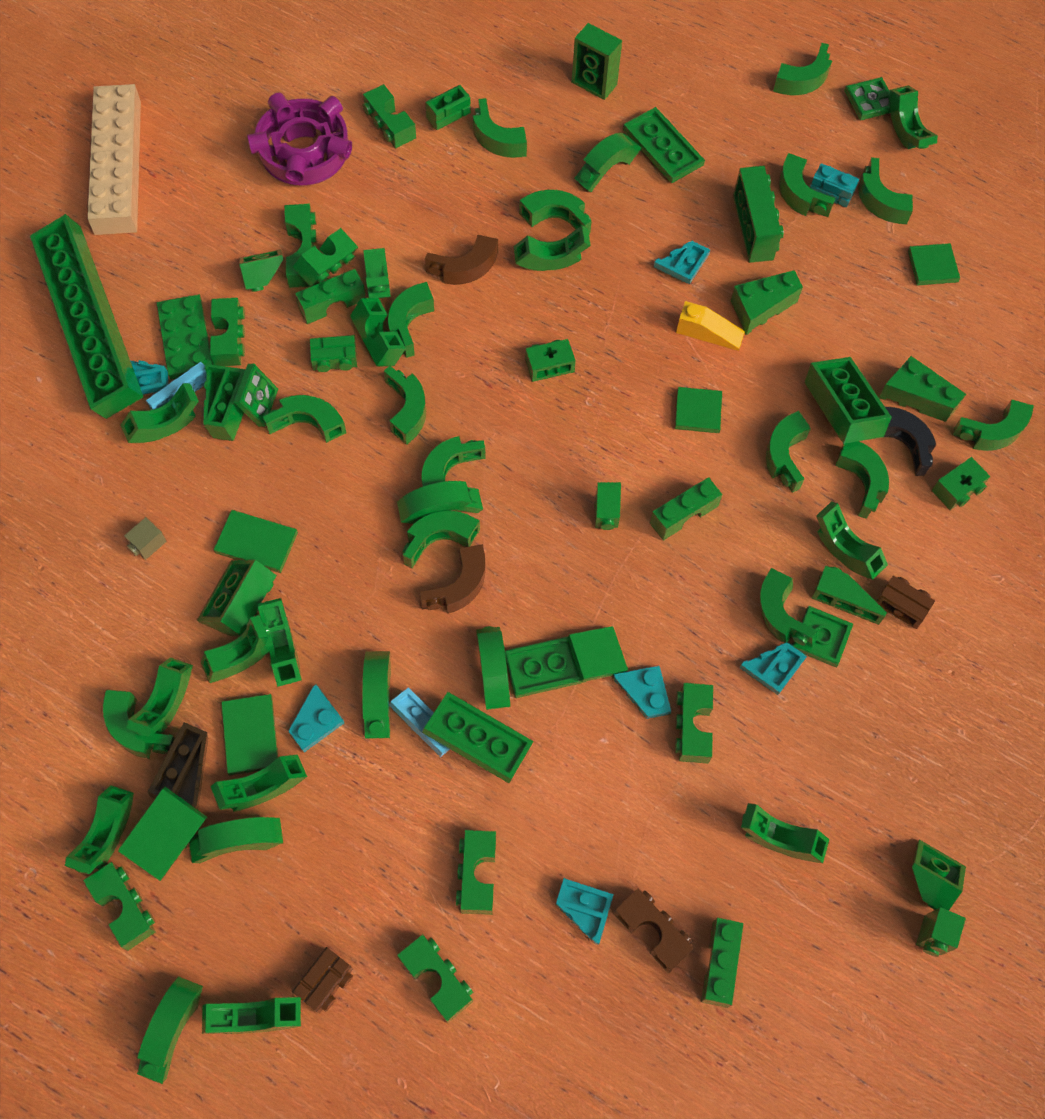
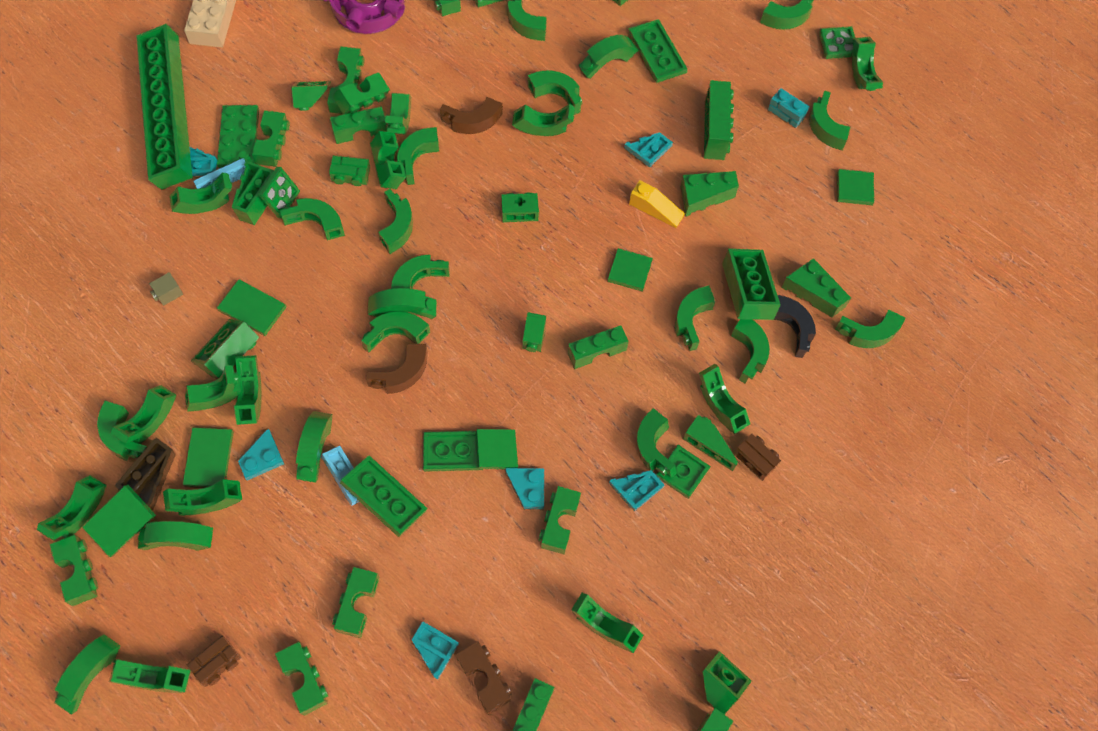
camera: 10 degrees right, 0 degrees up
(493, 667) = (409, 443): green arch -> none
(797, 193) = (757, 110): green arch -> none
(961, 483) = (829, 370): green brick -> none

